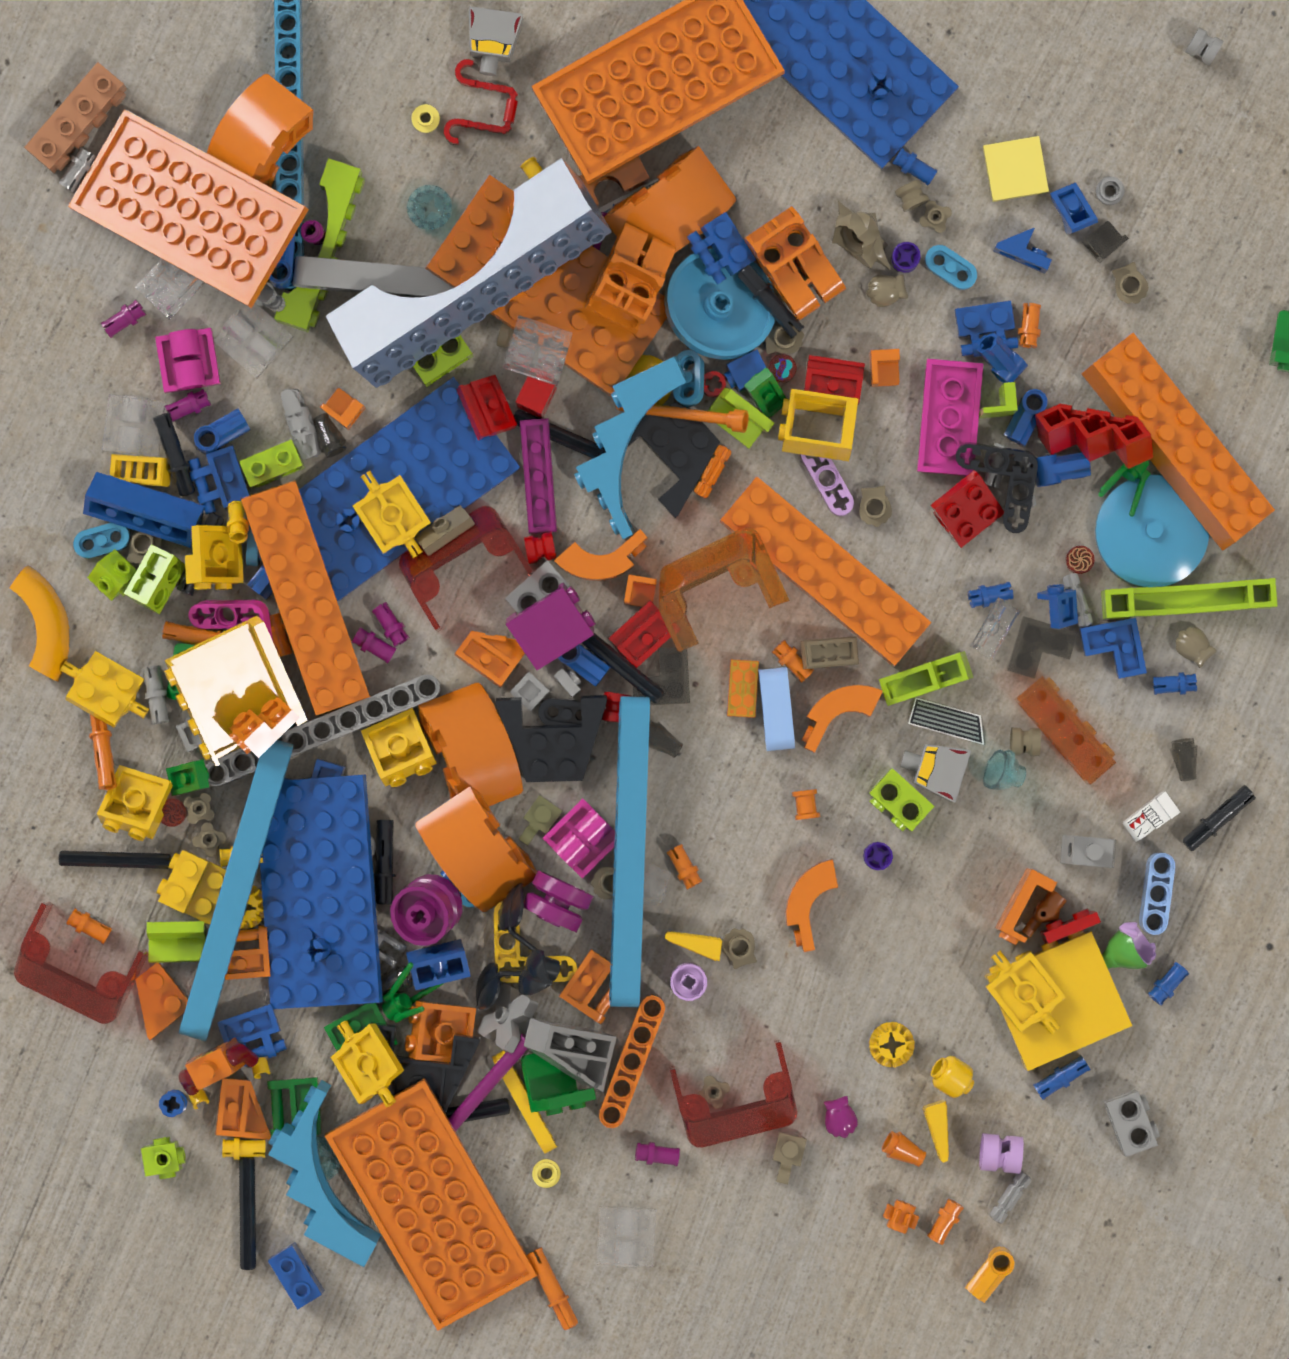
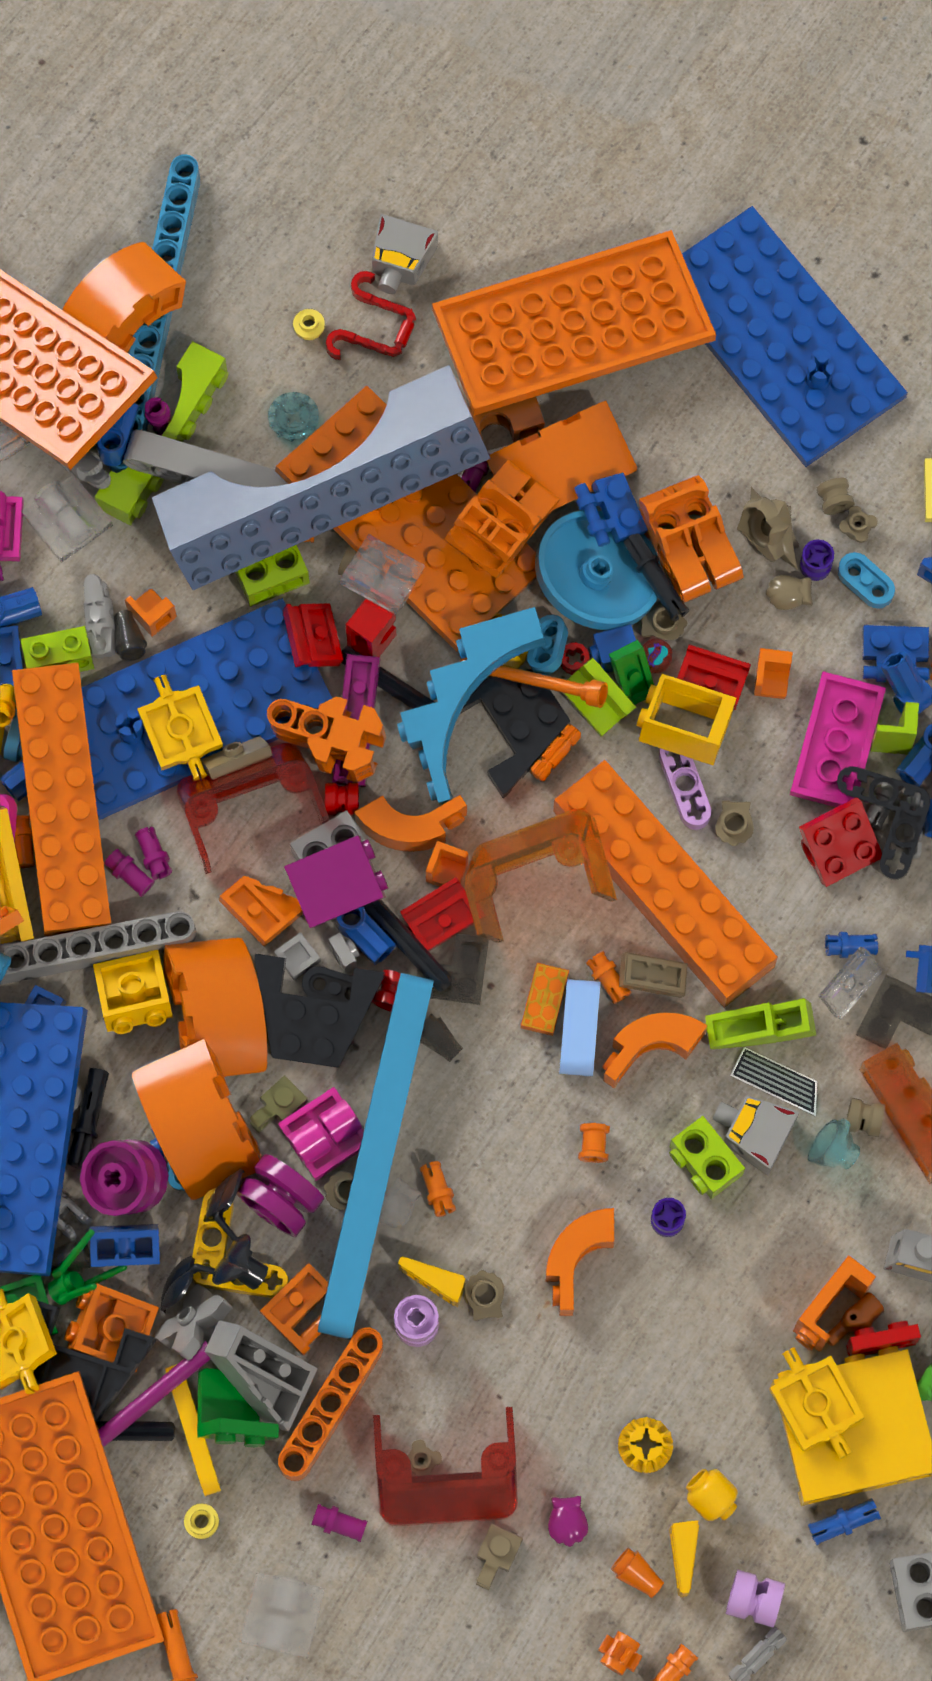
camera: 10 degrees right, 15 degrees down
(529, 500) = (339, 738): none -> orange connector
(914, 166) = (842, 466): blue pin -> none

